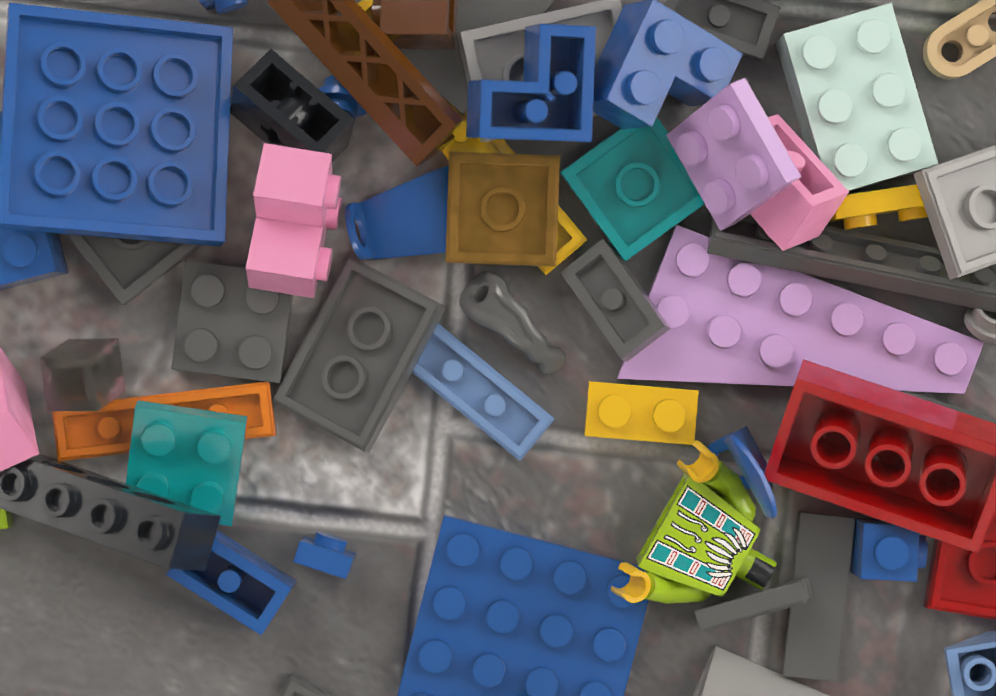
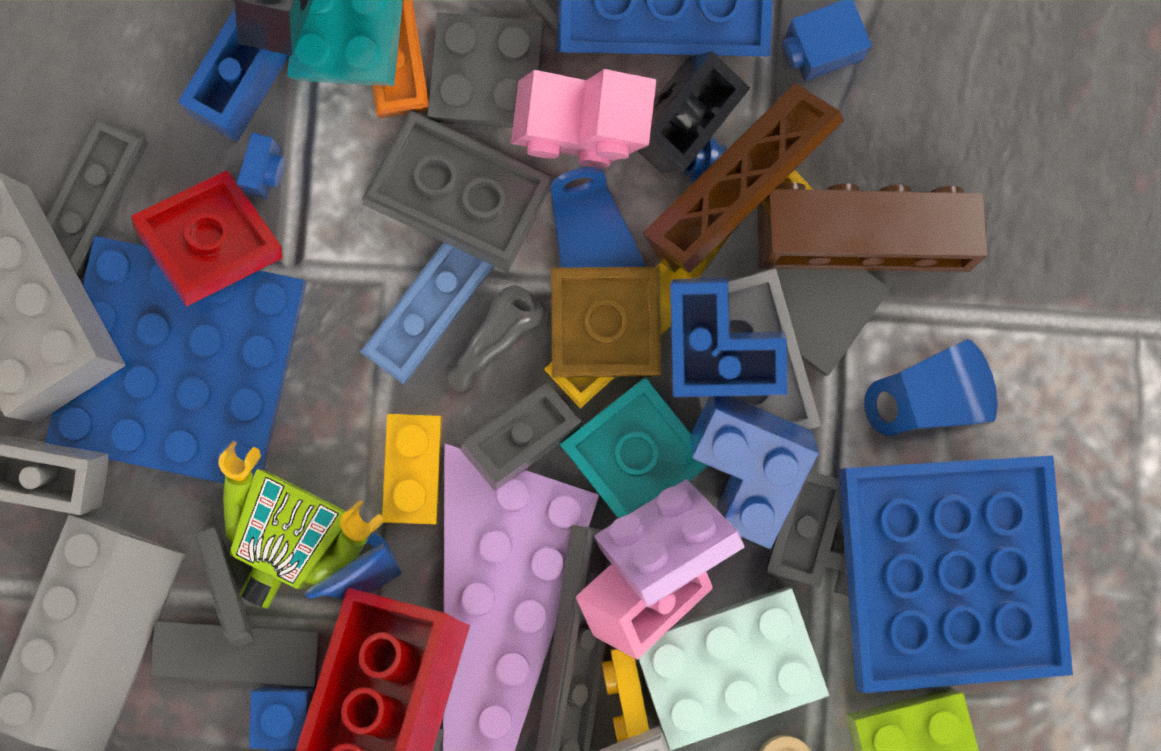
camera: 85 degrees right, 5 degrees down
(398, 611) = (206, 237): none -> red plate

